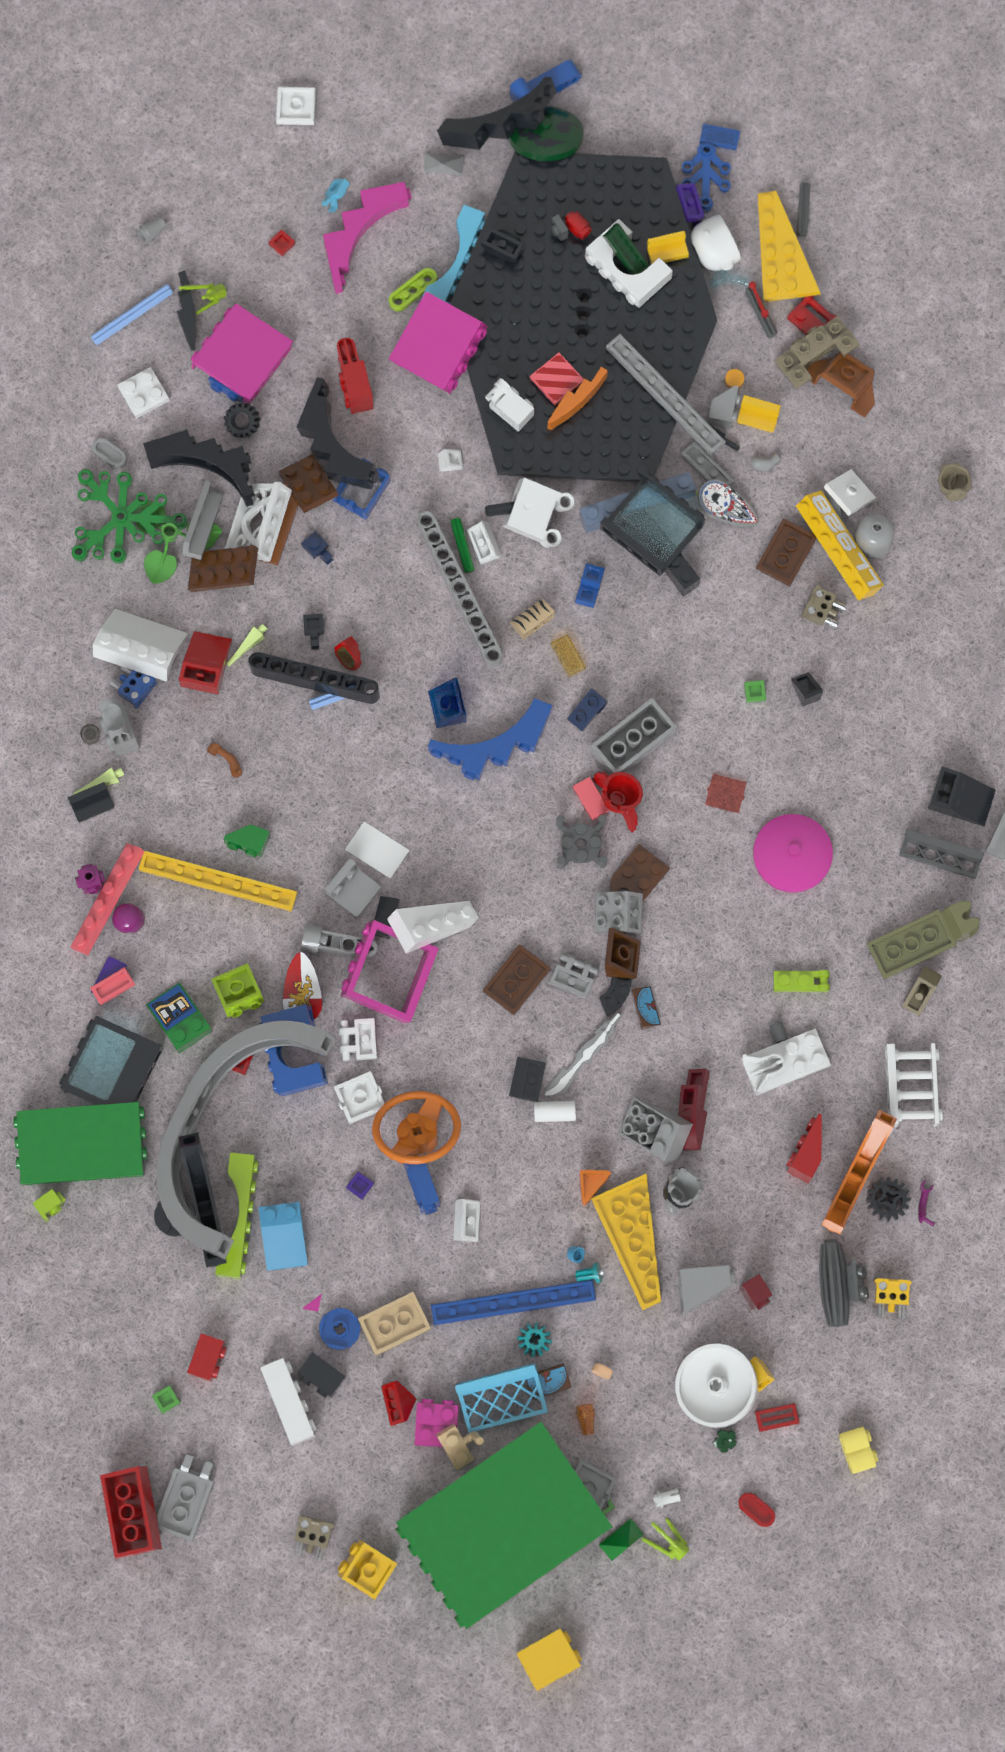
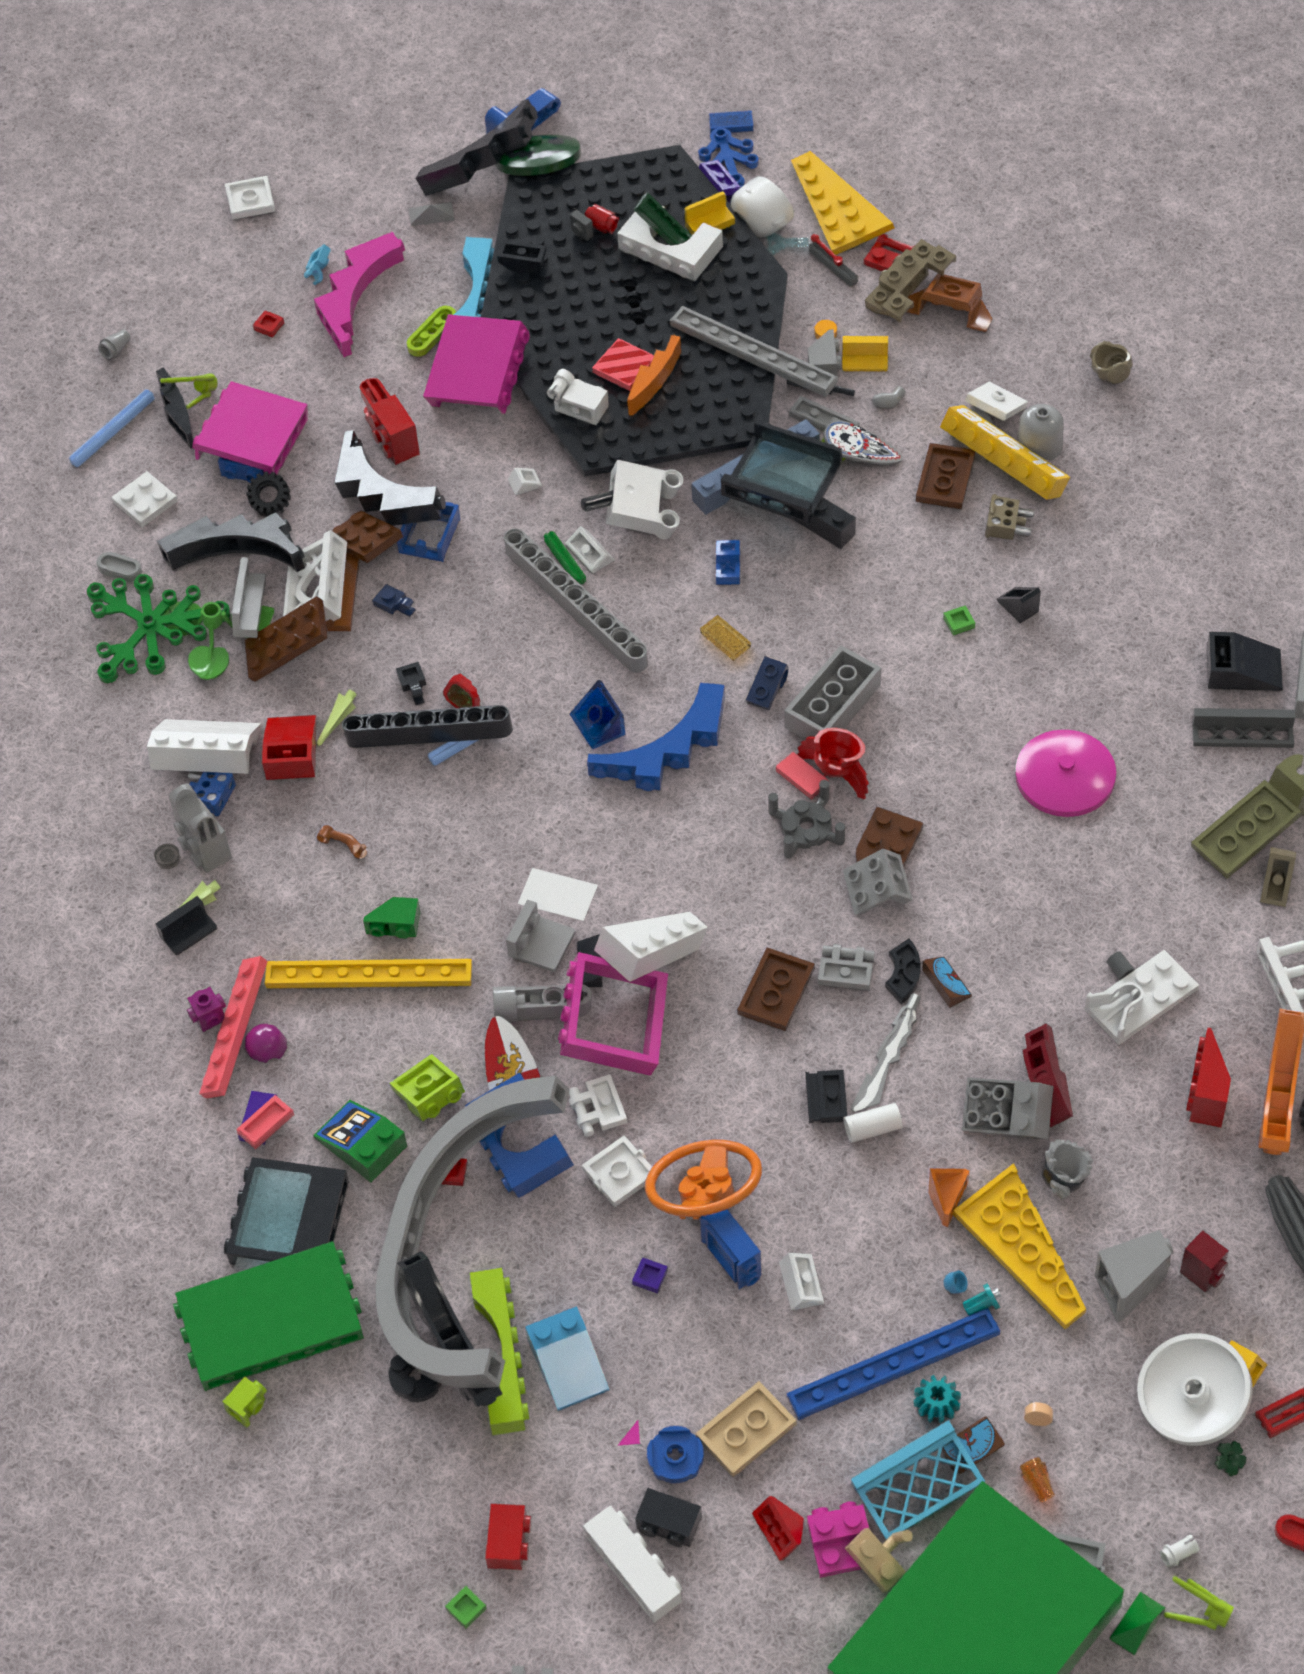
camera: 10 degrees left, 20 degrees down
(532, 619) = (672, 609): tan brick -> none
(621, 955) = (897, 926): reddish brown slope -> none
(725, 793) = (962, 732): clear red piece -> none
(800, 981) = (1127, 904): lime plate -> none
(803, 209) = (846, 162): dark grey axle -> none

